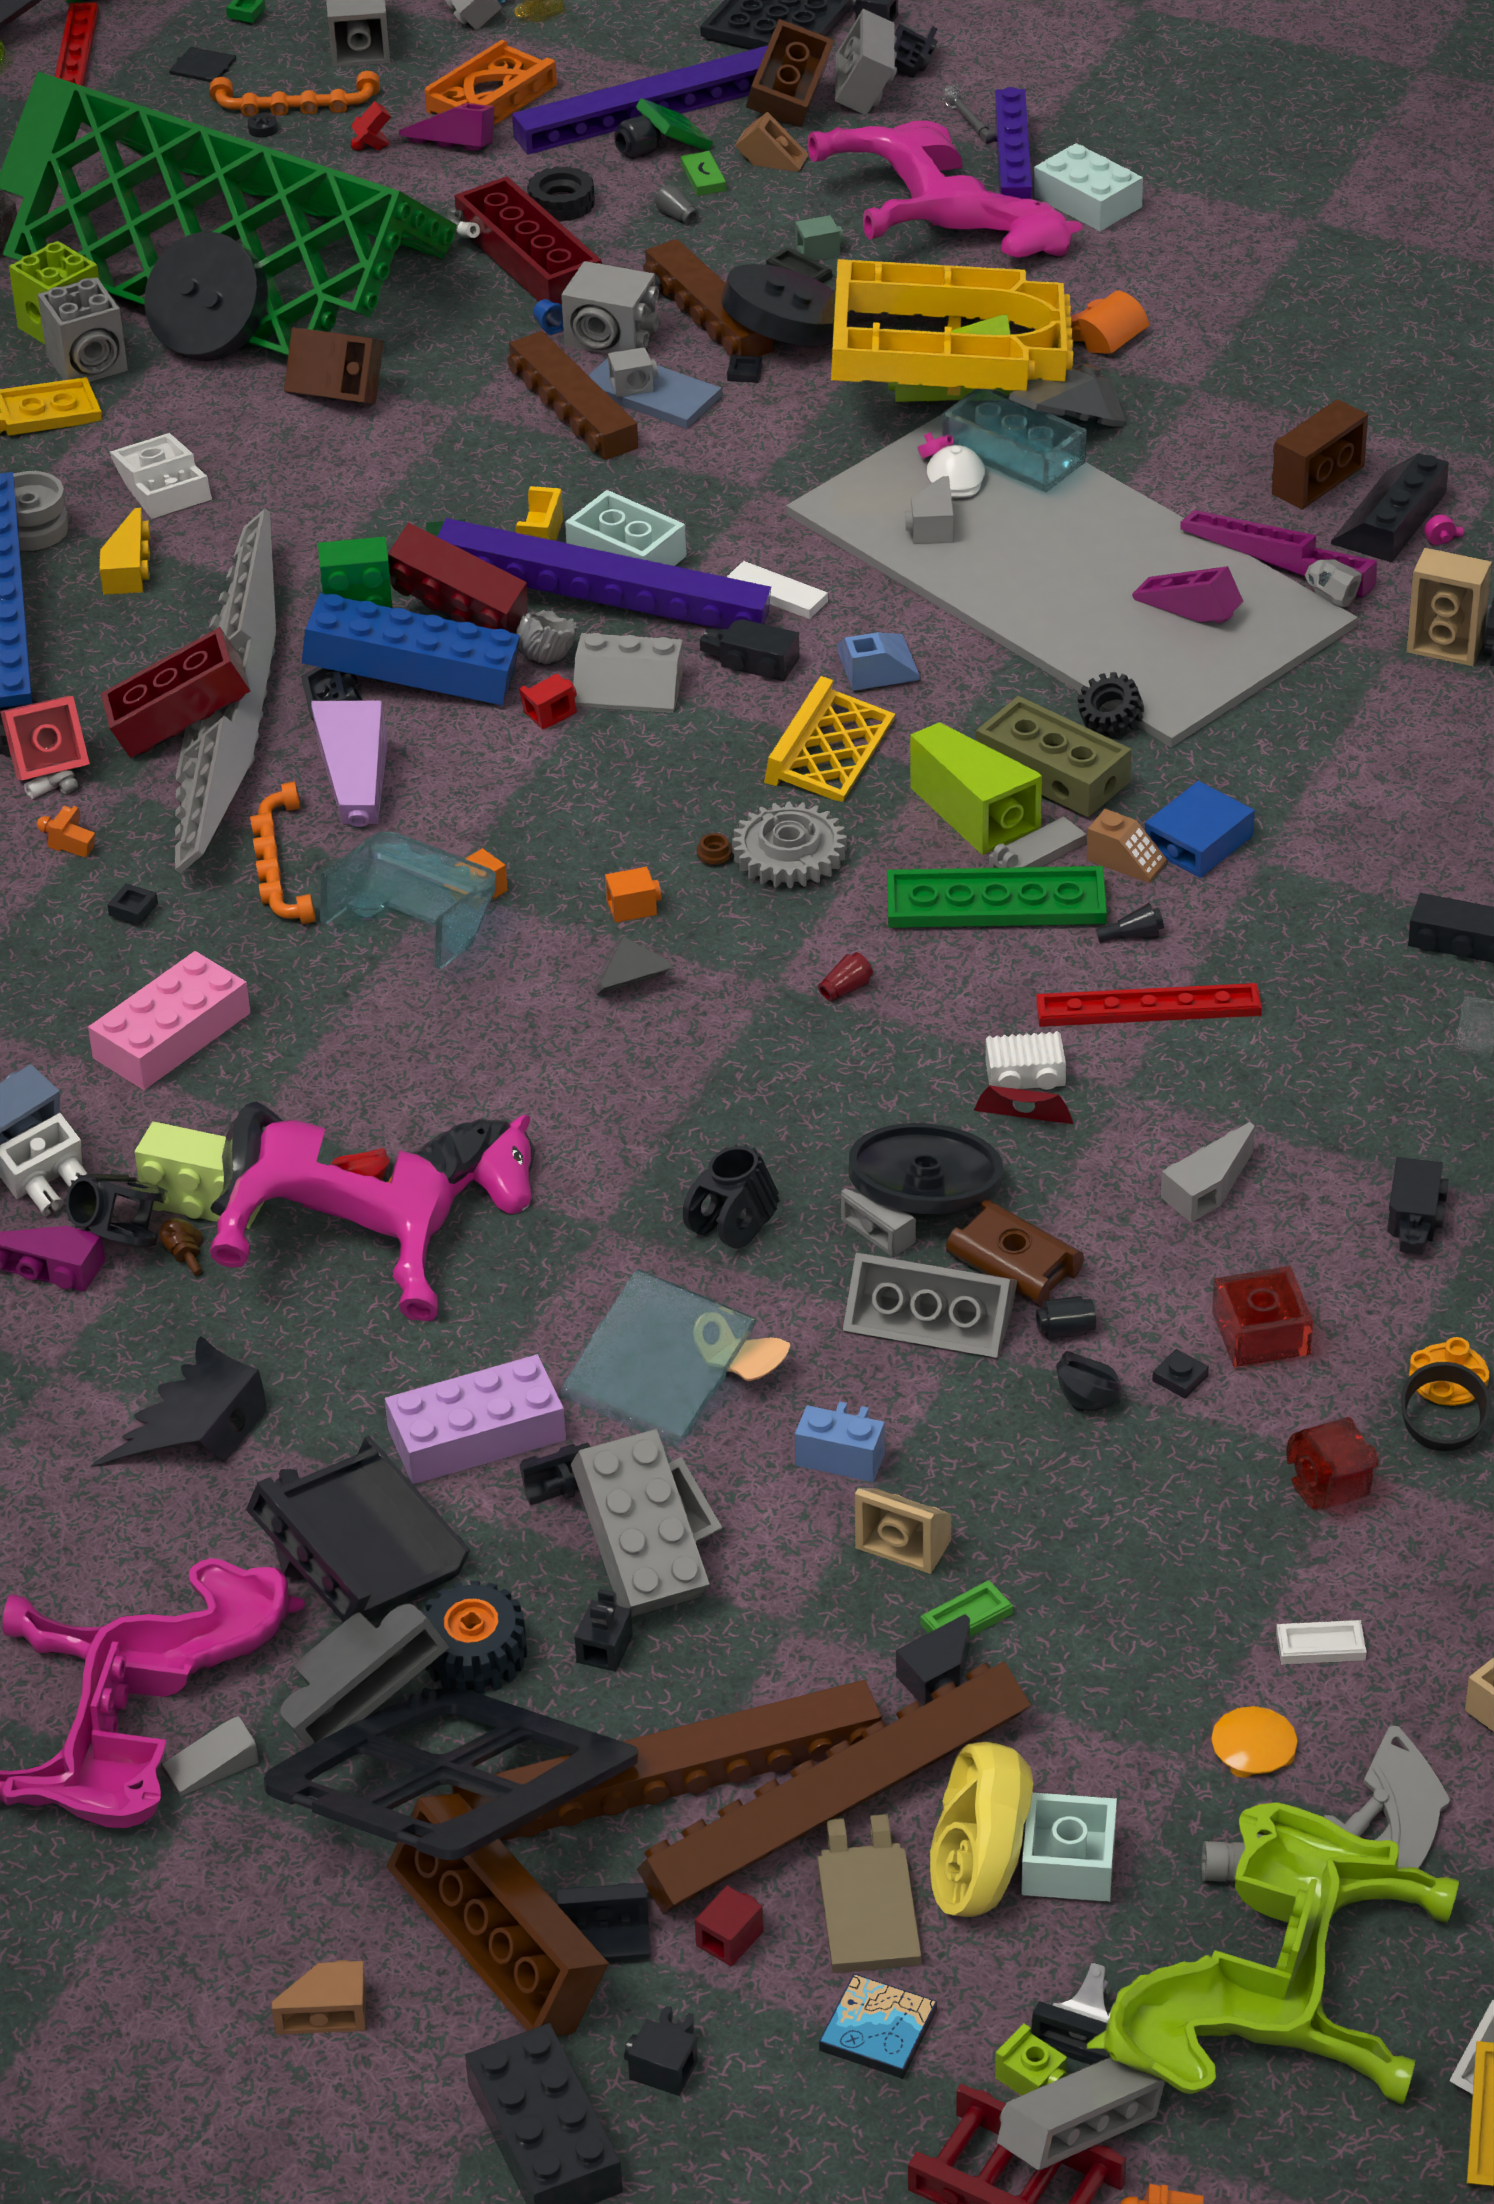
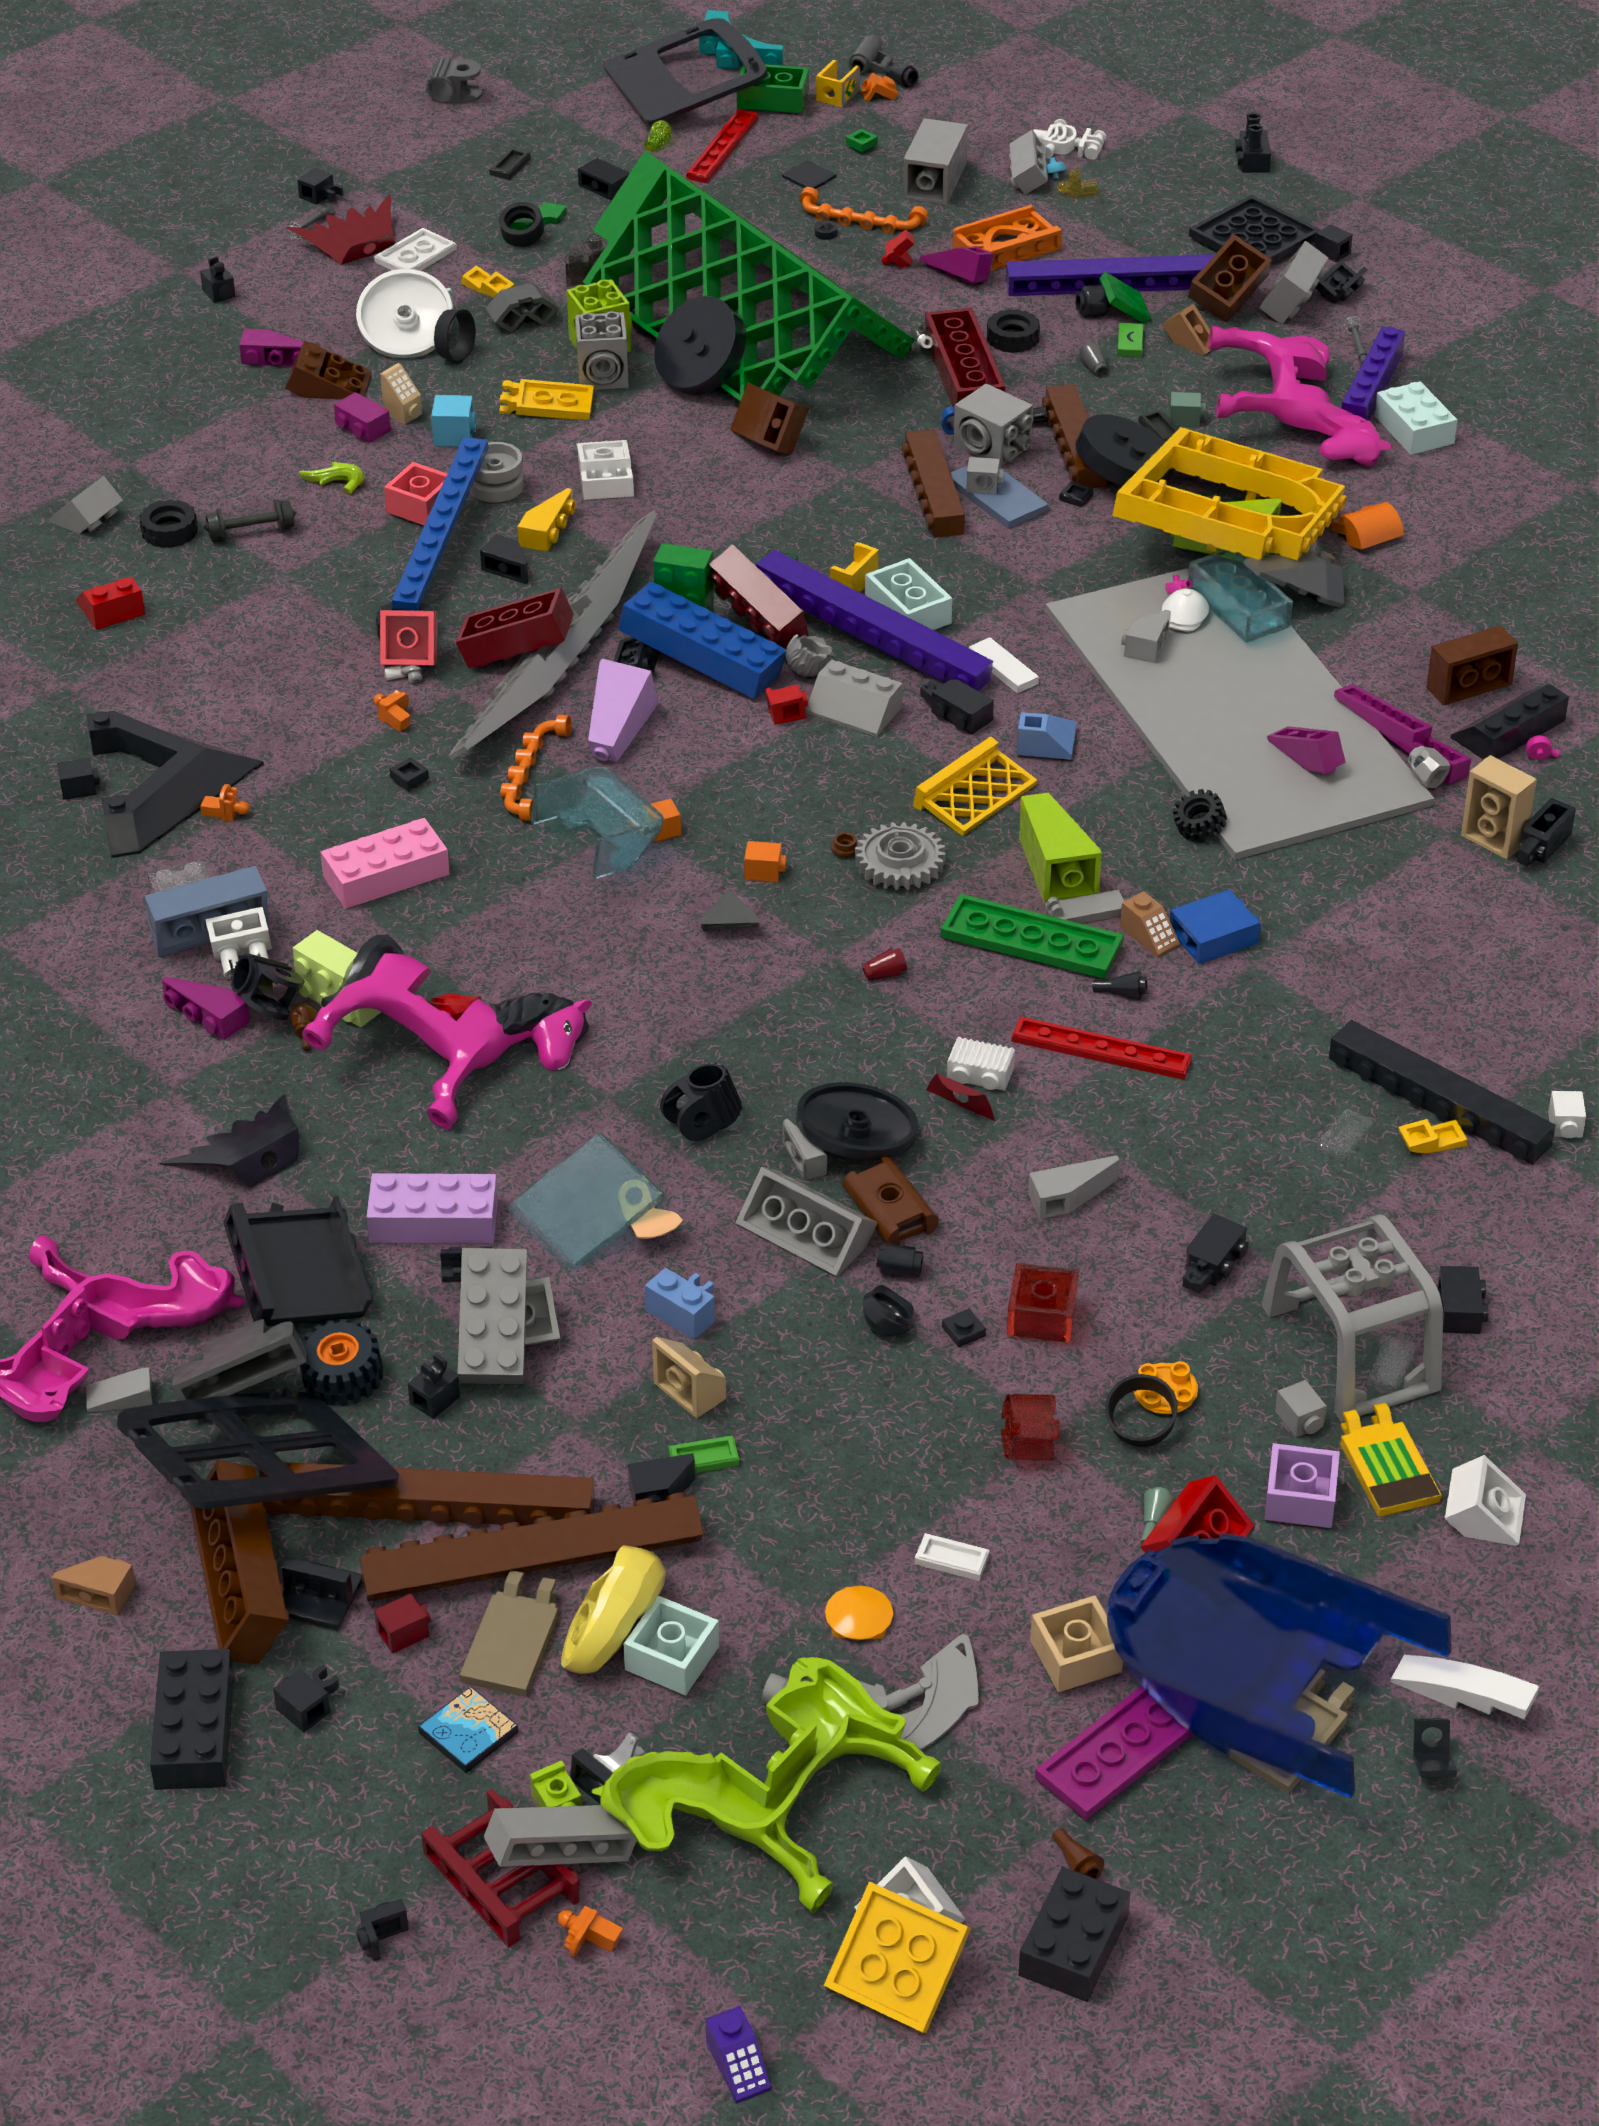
camera: 20 degrees right, 0 degrees up
(103, 613) = (504, 558): none -> black slope
(1075, 762) = (1133, 842): olive brick -> none

